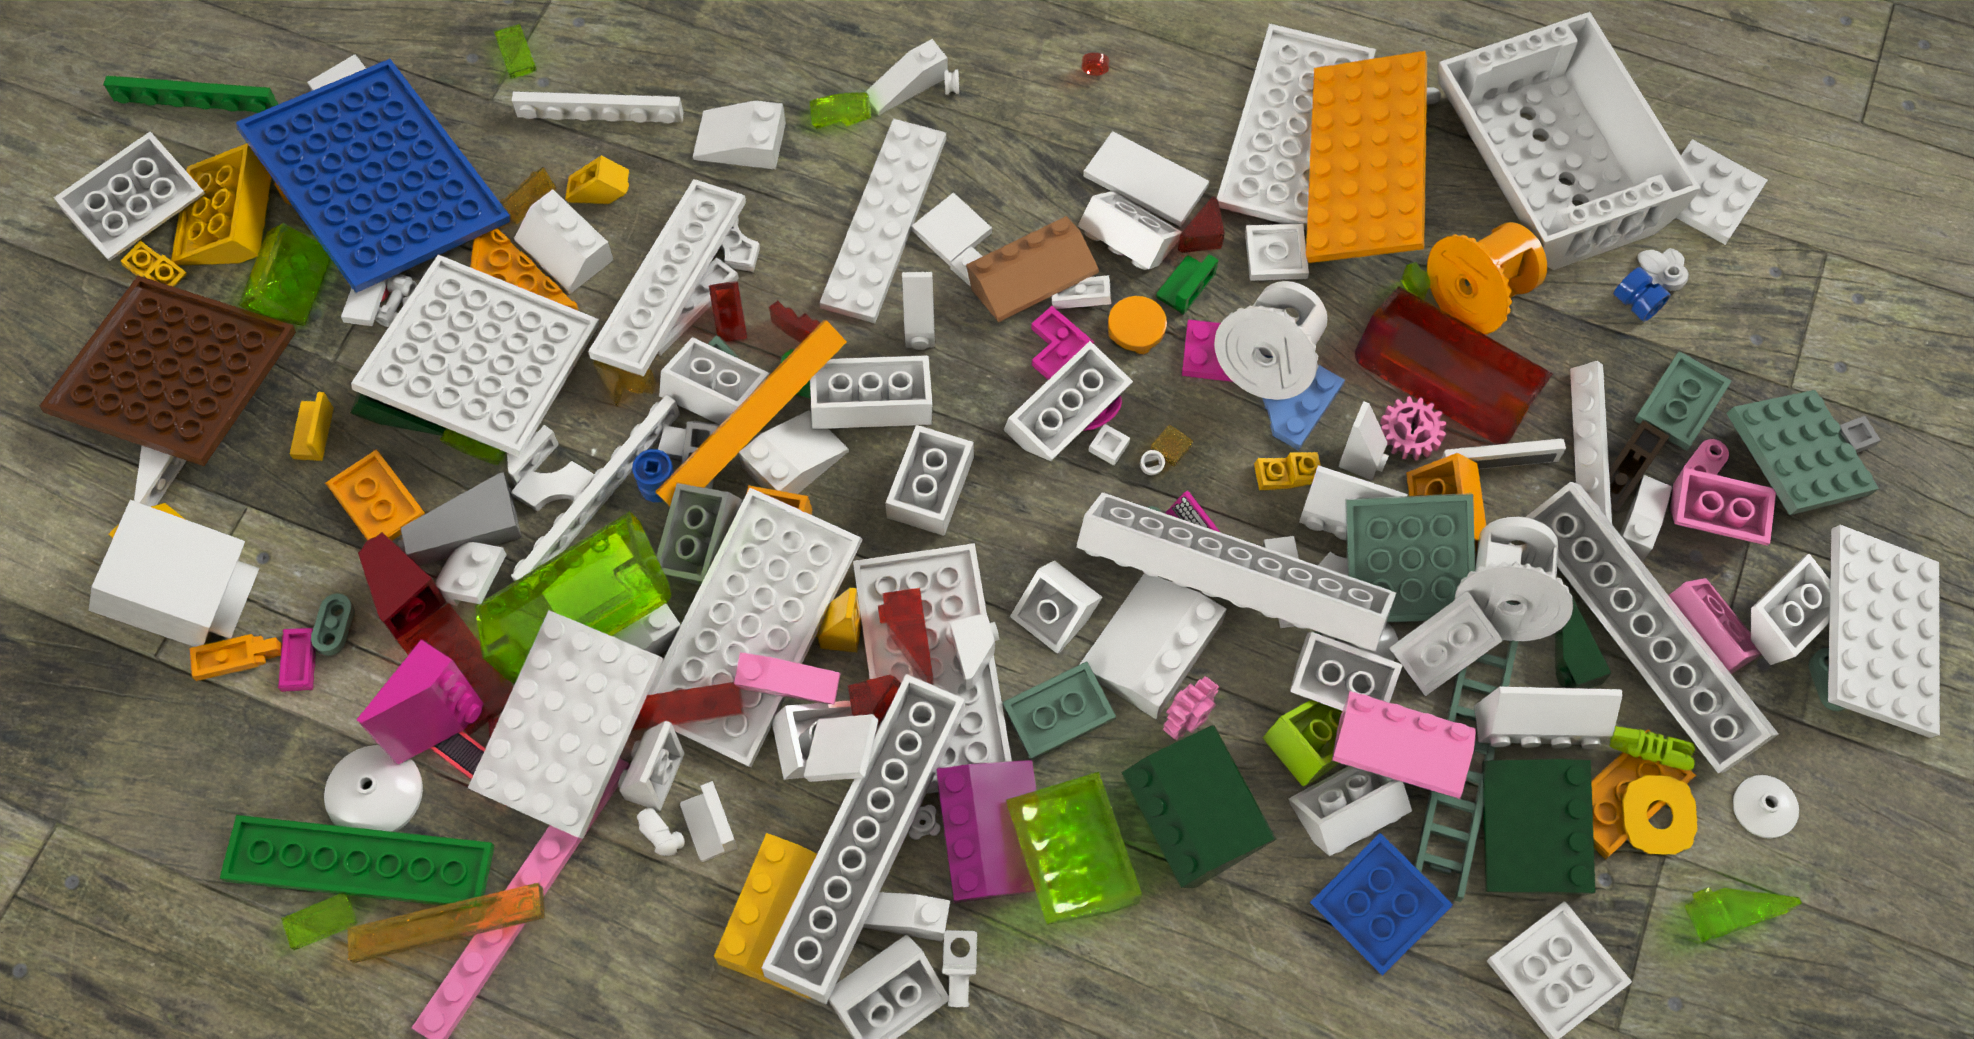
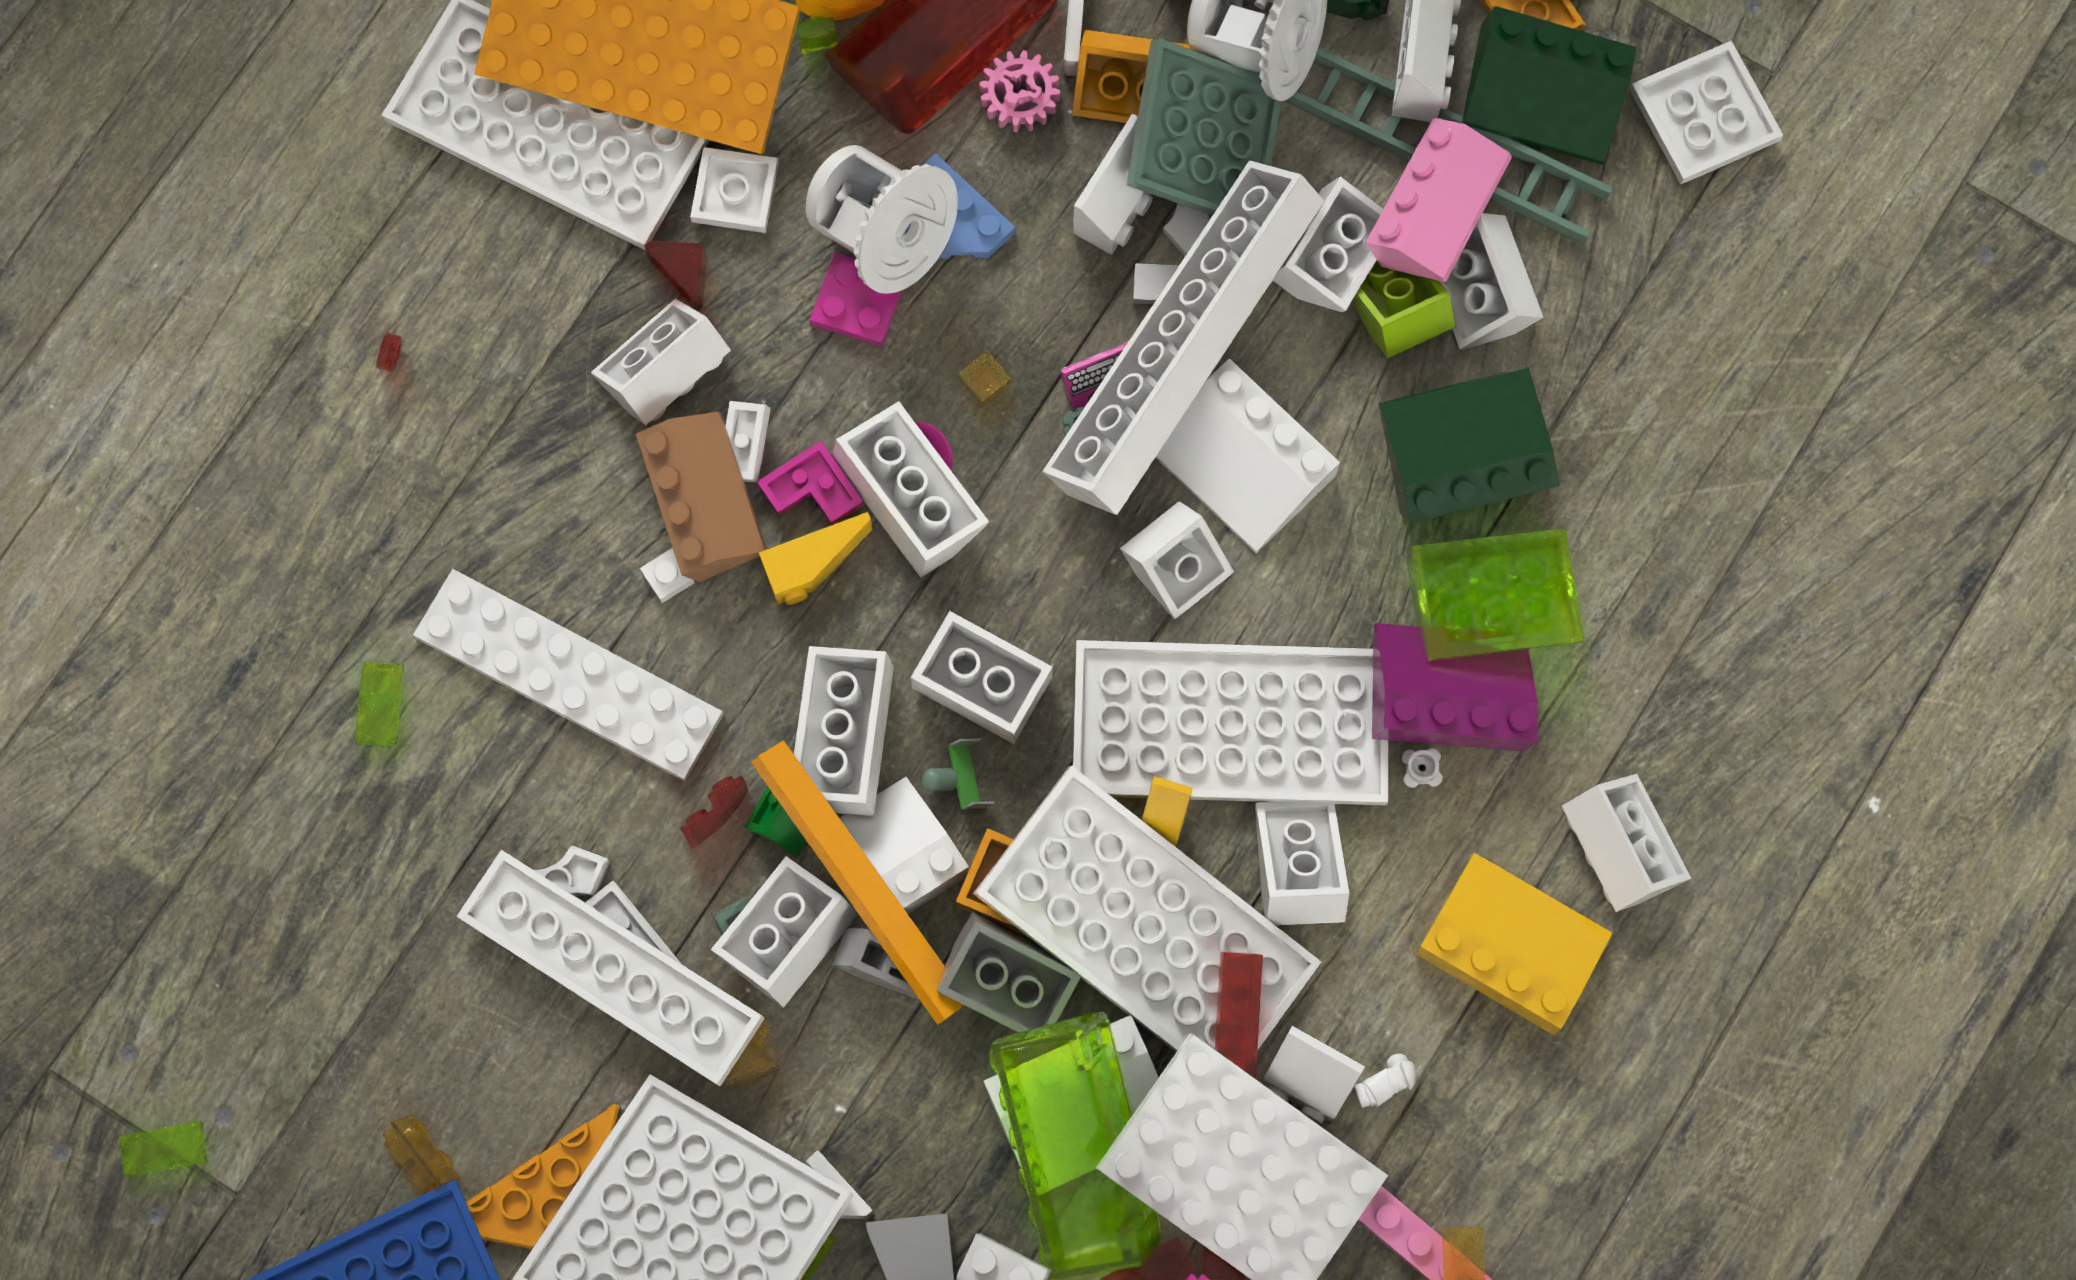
camera: 80 degrees left, 10 degrees up
(541, 488) = (884, 1145): white tile -> none
(562, 242) = (513, 1112): white slope -> none
(597, 107) = (294, 1053): white plate -> none
(597, 182) = (427, 1053): yellow slope -> none
(603, 485) = (922, 1120): white plate -> none
(651, 470) = (905, 1025): blue wheel -> none
(673, 442) = (853, 996): white tile -> none
(708, 824) = (1382, 1021): white panel -> none
(728, 311) = (678, 899): clear red slope -> none
(742, 134) = (390, 845): white slope -> none
(786, 678) = (1234, 891): bright pink slope -> none
(841, 748) = (1339, 836): white tile -> none
(854, 484) = (961, 776): none -> piece
(864, 840) = (1449, 826): white brick -> none
(873, 696) = (1273, 797): clear red slope -> none
(907, 628) = (1182, 736): clear red slope -> none
(908, 77) = (351, 604): white slope -> none
(909, 915) = (1534, 811): white slope -> none
(918, 310) = (744, 647): white slope -> none
(951, 82) = (372, 546): white bush -> none
(951, 228) = (605, 589): white tile -> none
(959, 967) = (1605, 754): white bracket -> none
(974, 645) = (1224, 662): white slope -> none
(1000, 353) = (807, 561): none -> yellow slope
(1058, 710) = (1313, 582): sand green plate -> none
(1109, 444) = (970, 452): white plate -> none
(1137, 324) = (802, 383): light orange tile -> none
(1146, 178) = (583, 326): white tile -> none
(1149, 457) = (1012, 406): white hinge -> none
(1187, 282) = (753, 309): green panel -> none
(1190, 708) = (1345, 427): bright pink gear -> none
(1289, 472) = (1045, 249): yellow slope -> none
(1365, 445) = (1041, 153): white slope -> none
(1381, 904) = (1607, 275): blue plate -> none
(1446, 643) = (1319, 123): white plate -> none

